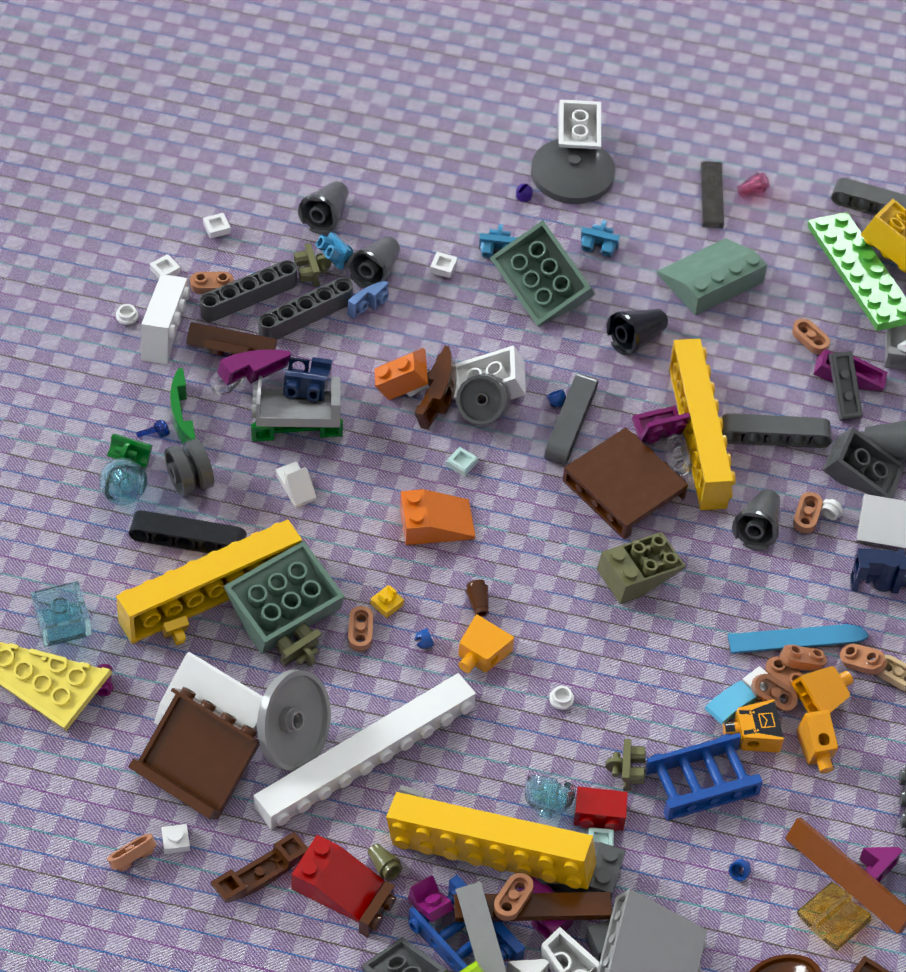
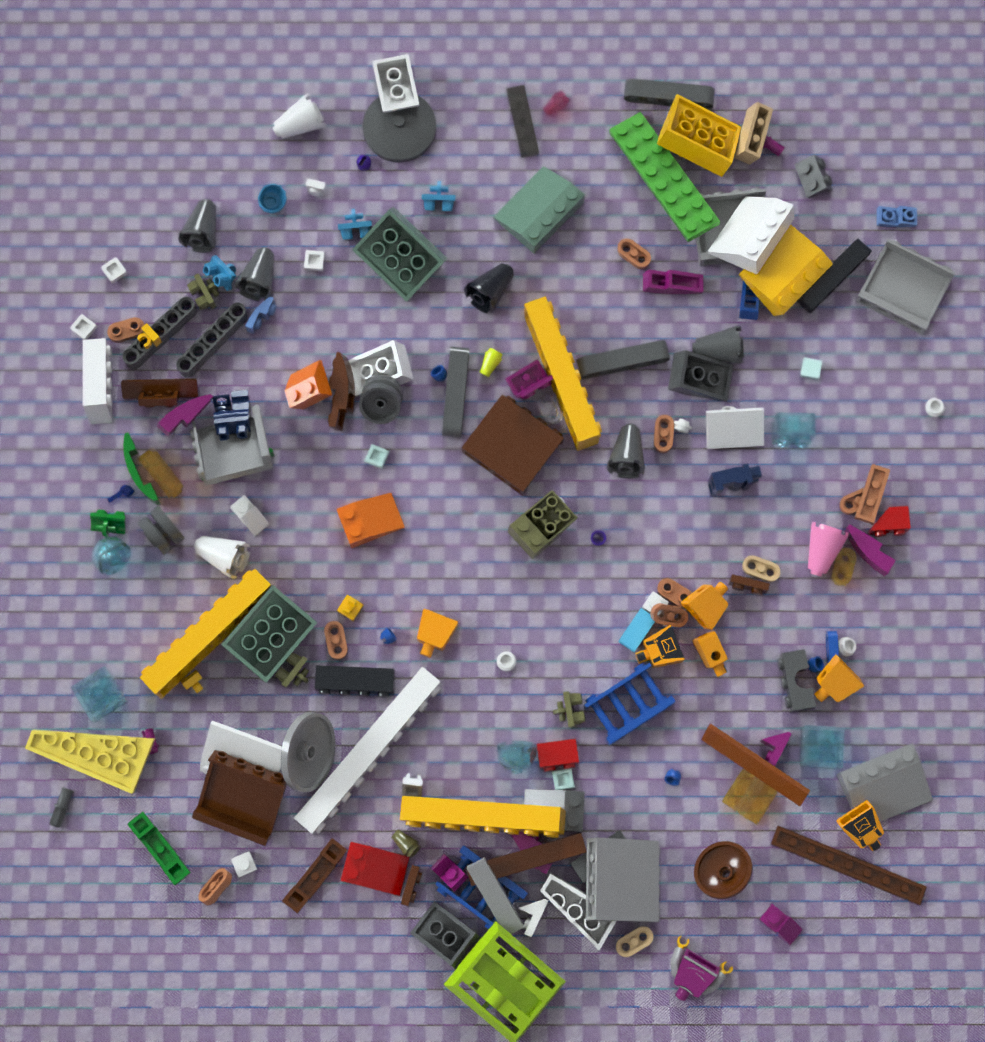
camera: 10 degrees left, 25 degrees up
(75, 792) = (159, 848): none -> green slope
(126, 314) = (65, 383): white plate -> none
(183, 532) = (176, 589): black beam -> none
(206, 415) = (161, 473): none -> clear yellow slope
(239, 282) = (150, 335): none -> yellow tile
(254, 508) = (223, 554): none -> white cone
(371, 672) = (354, 680): none -> black brick
(413, 198) = (272, 198): none -> dark azure hair
(464, 136) = (299, 119): none -> white cone
(465, 200) = (316, 187): none -> white plate
(478, 597) = (421, 586): reddish brown cone -> none
(512, 898) = (510, 860): nougat plate -> none
(620, 399) = (490, 362): none -> neon yellow cone
(708, 593) = (596, 541): none -> dark purple hinge
(802, 637) = (676, 556): dark azure piece -> none
(803, 658) = (687, 575): nougat plate -> none
(845, 385) = (672, 301): dark grey tile -> none
(861, 659) = (731, 563): nougat plate -> none
(879, 684) = (756, 587): none -> reddish brown plate

